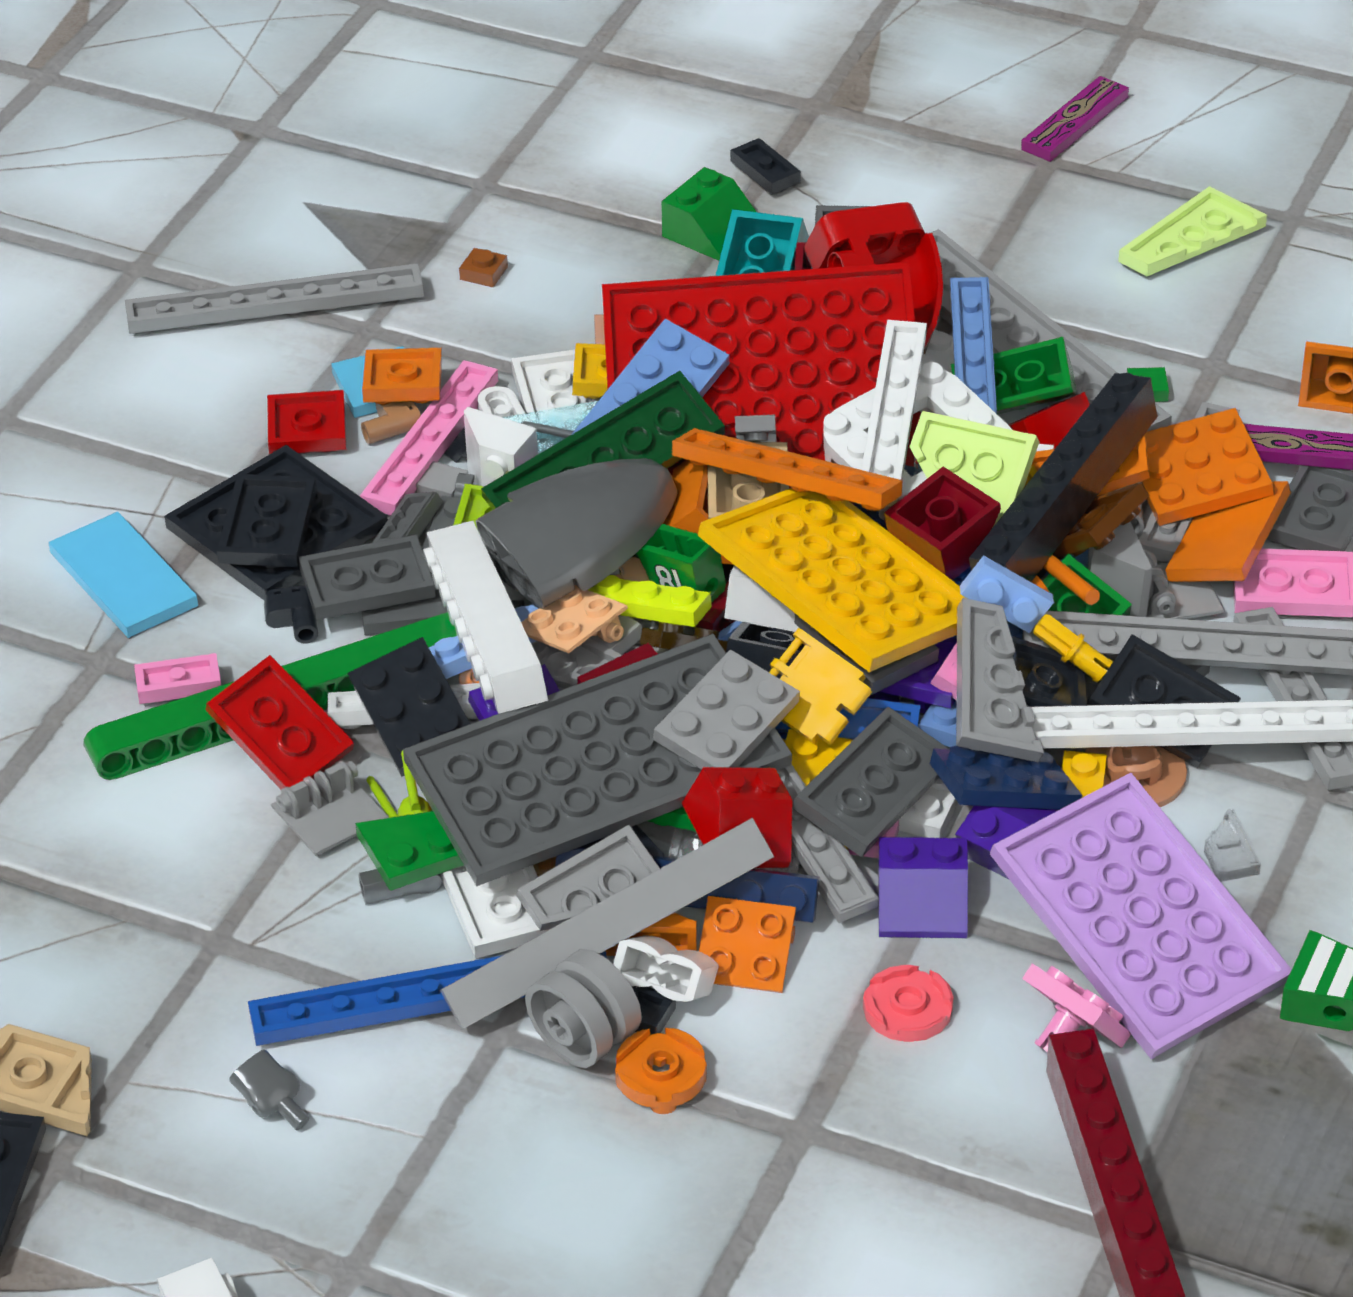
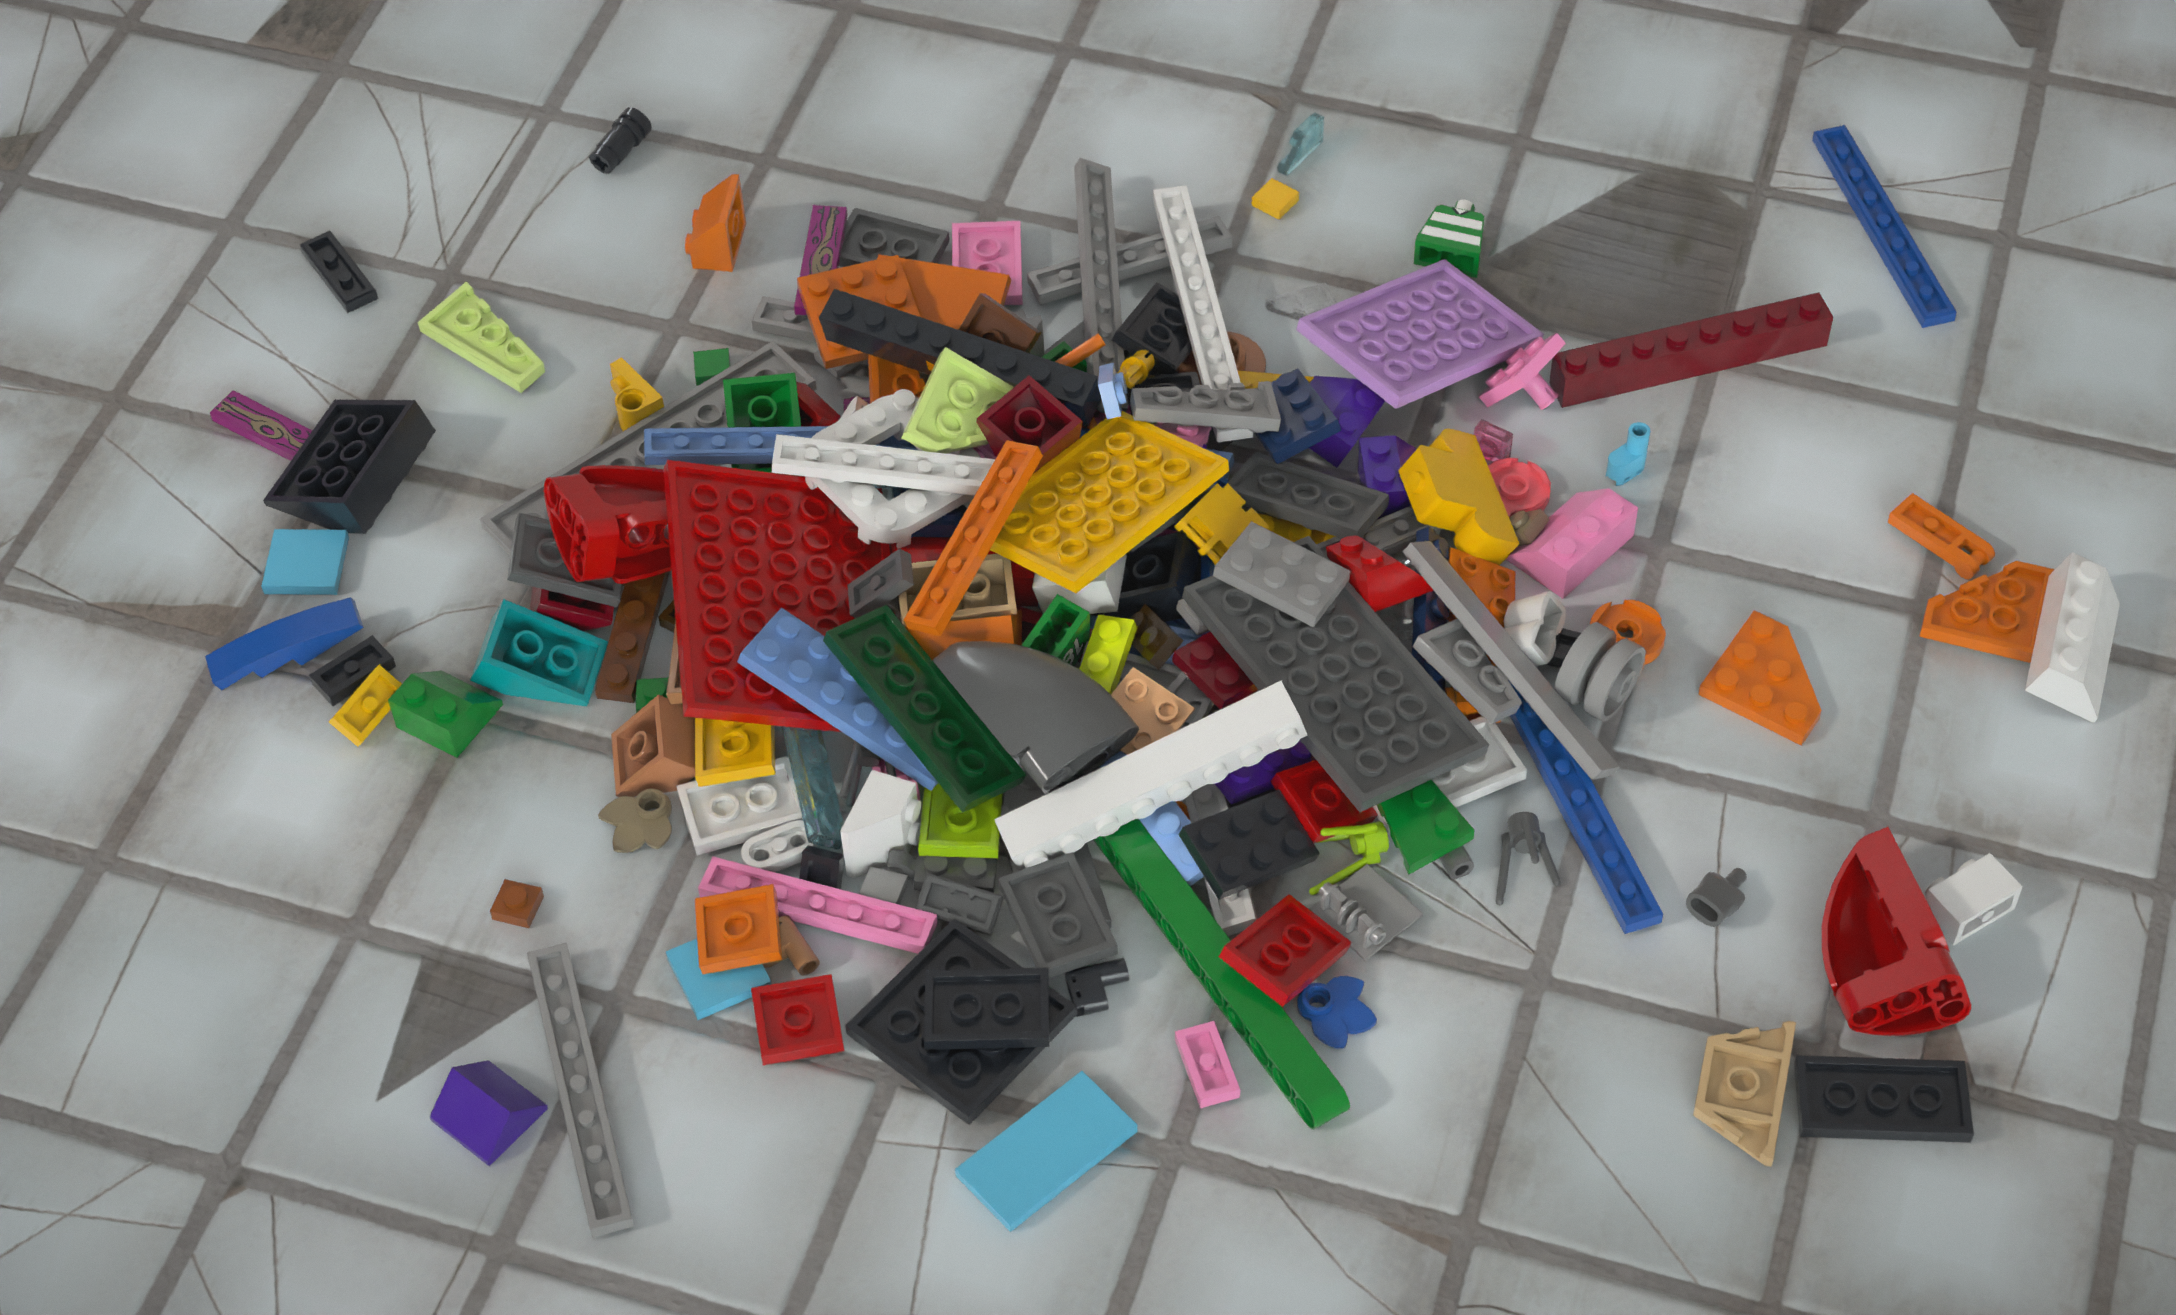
camera: 95 degrees left, 10 degrees up
(157, 1211) = (1887, 947): none -> red panel
(216, 777) = (1341, 1010): none -> blue plate
(273, 252) = (485, 1109): none -> dark purple slope
(392, 938) = (1525, 837): none -> dark grey plant
(557, 337) = (635, 823): none -> dark tan plate
(576, 1191) = (1765, 680): none -> orange plate
(741, 172) = (366, 706): none -> yellow plate
(803, 125) = (289, 638): none -> blue slope
(808, 1039) = (1577, 540): none -> bright pink slope
(833, 990) = (1528, 525): none -> dark tan plate
(878, 921) = (1457, 493): none -> yellow brick
(907, 140) = (305, 562): none -> medium azure tile
(935, 1102) = (1630, 458): none -> medium azure piece
(973, 979) = (1493, 441): none -> clear pink plate
(1016, 154) = (352, 463): none -> black slope
(1102, 327) = (634, 395): none -> yellow plate
(1296, 146) = (338, 271): none -> black tile

